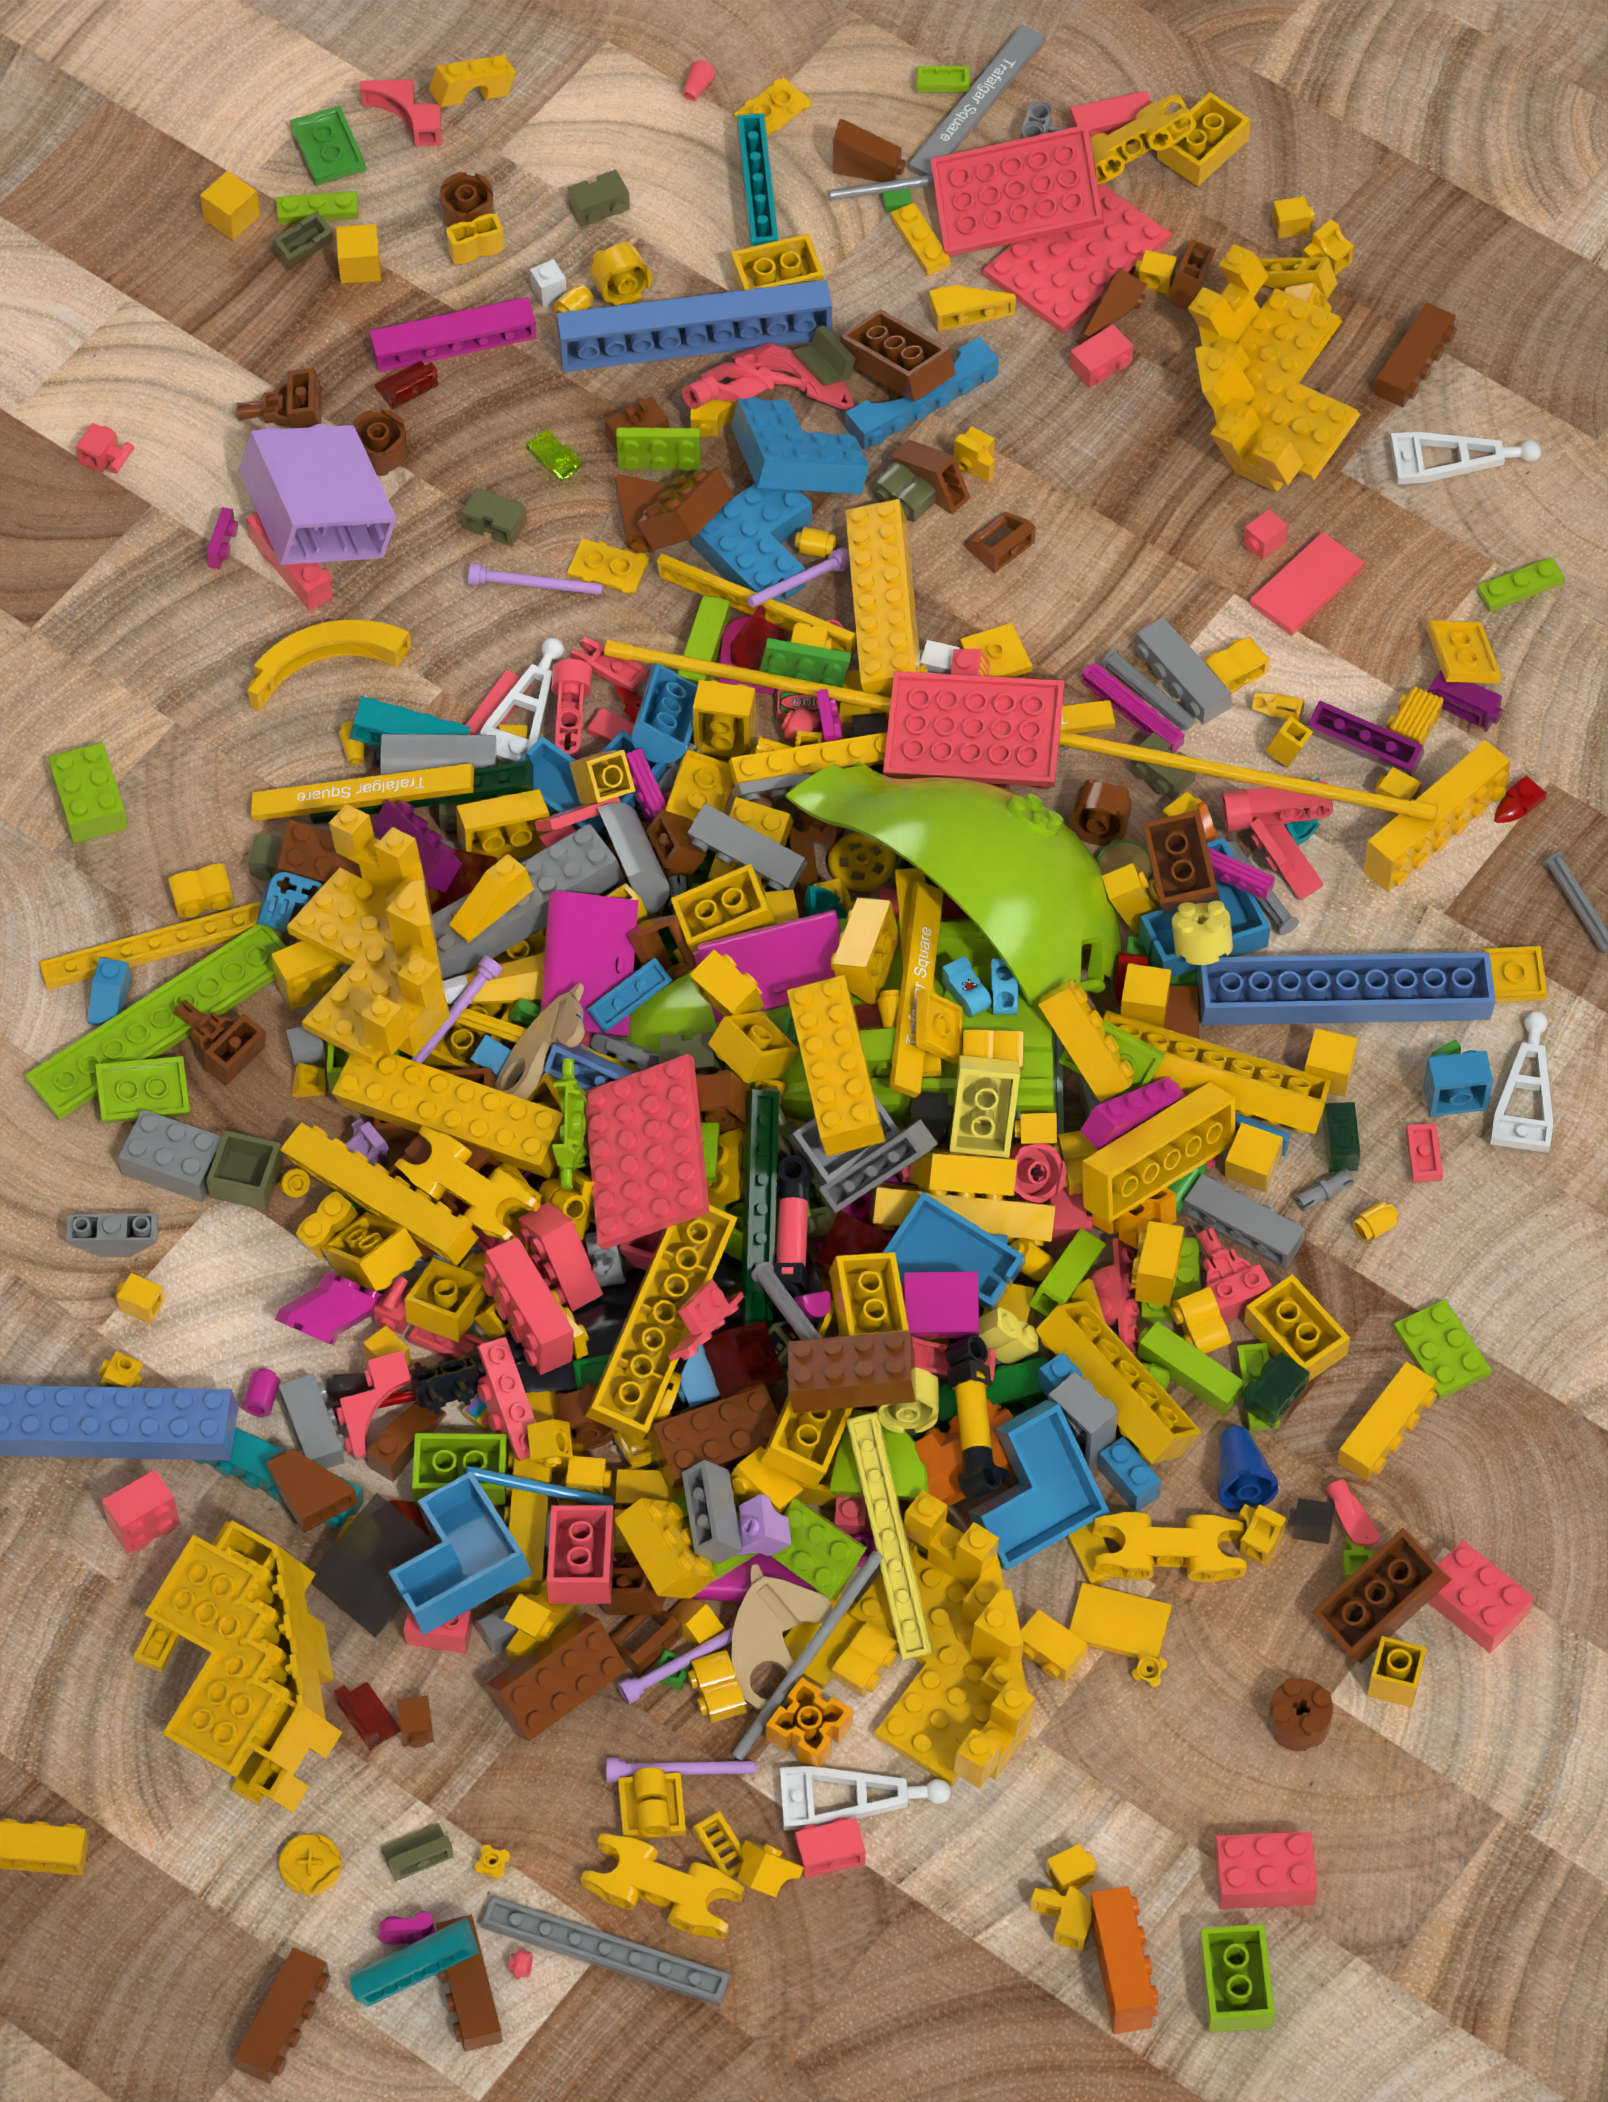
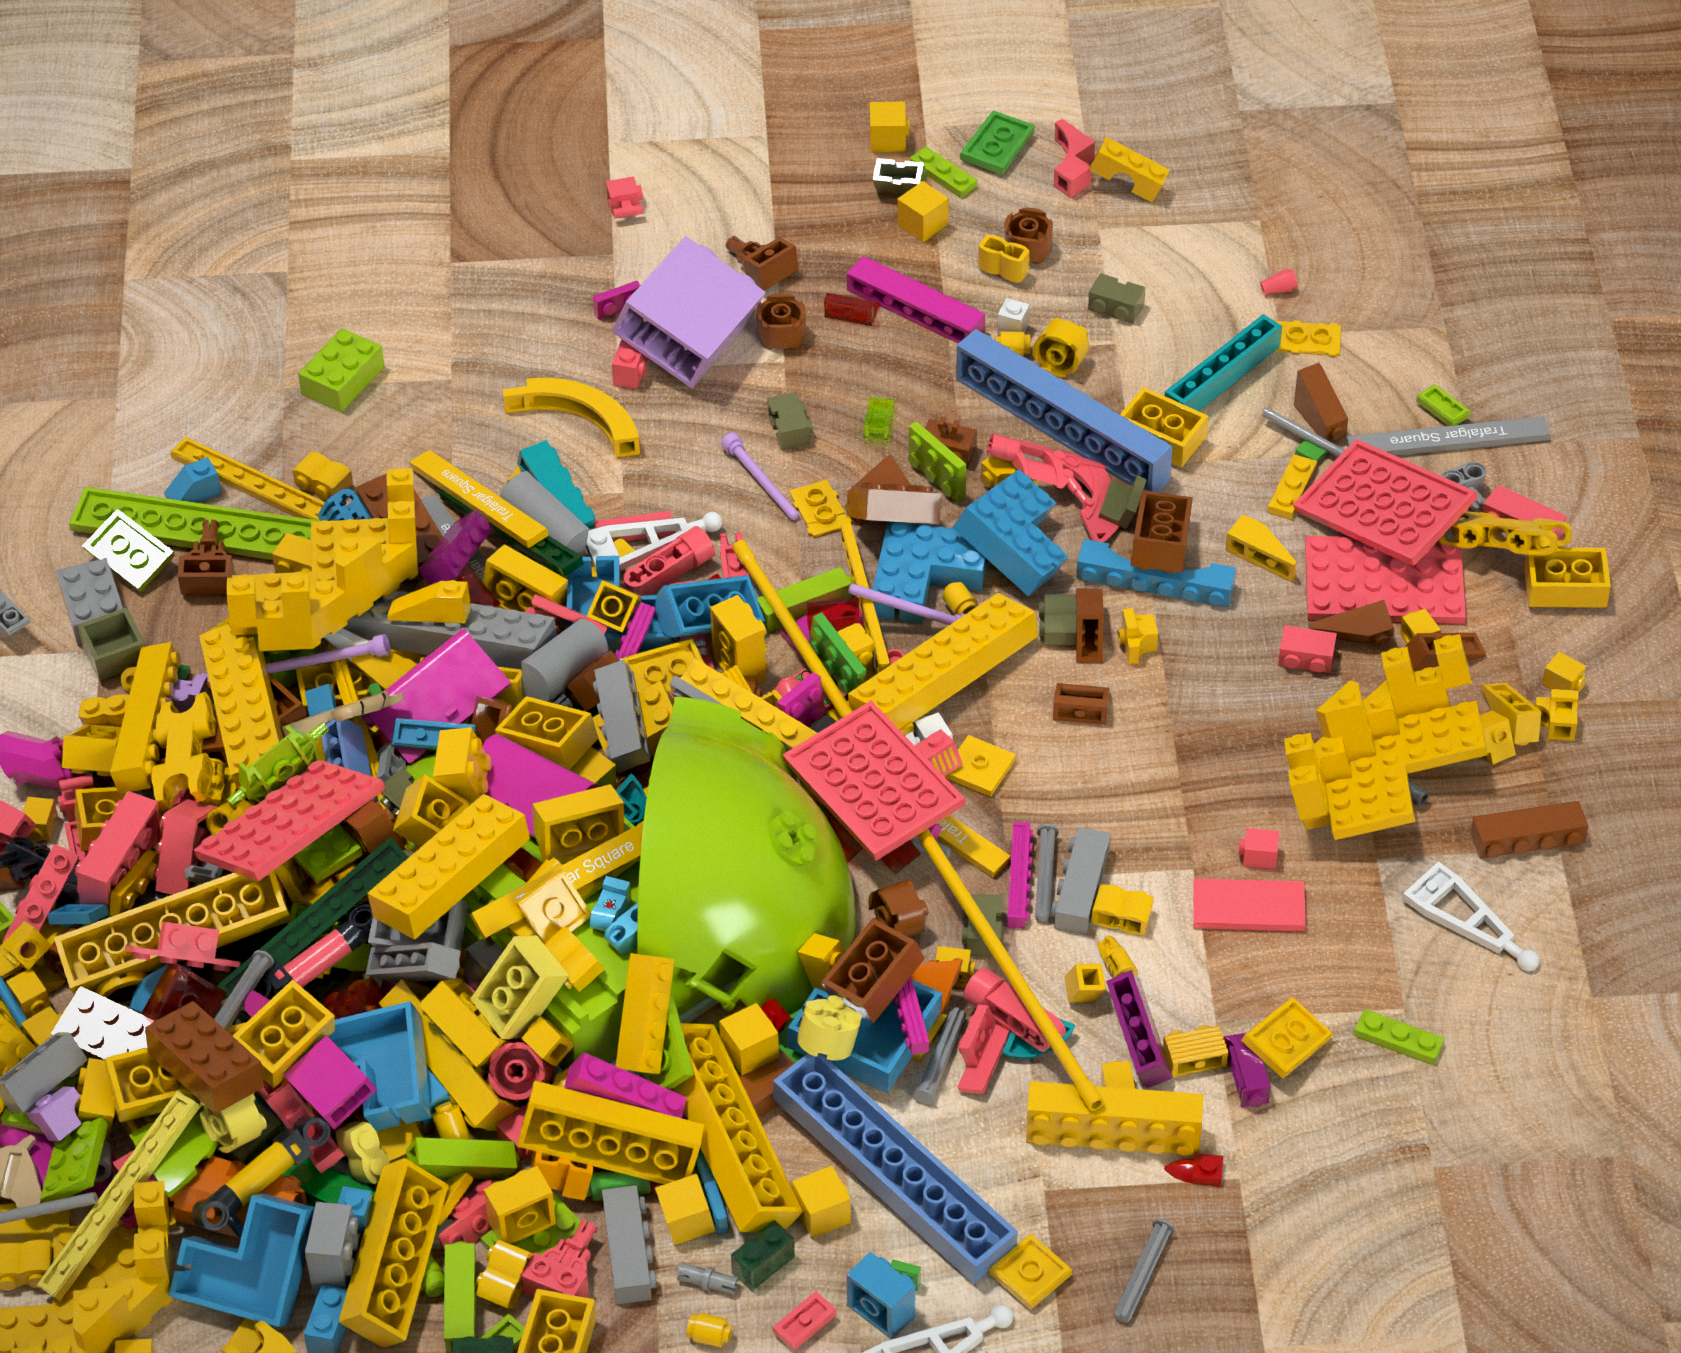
camera: 50 degrees right, 10 degrees down
(554, 1381) = (74, 914): none -> dark azure plate

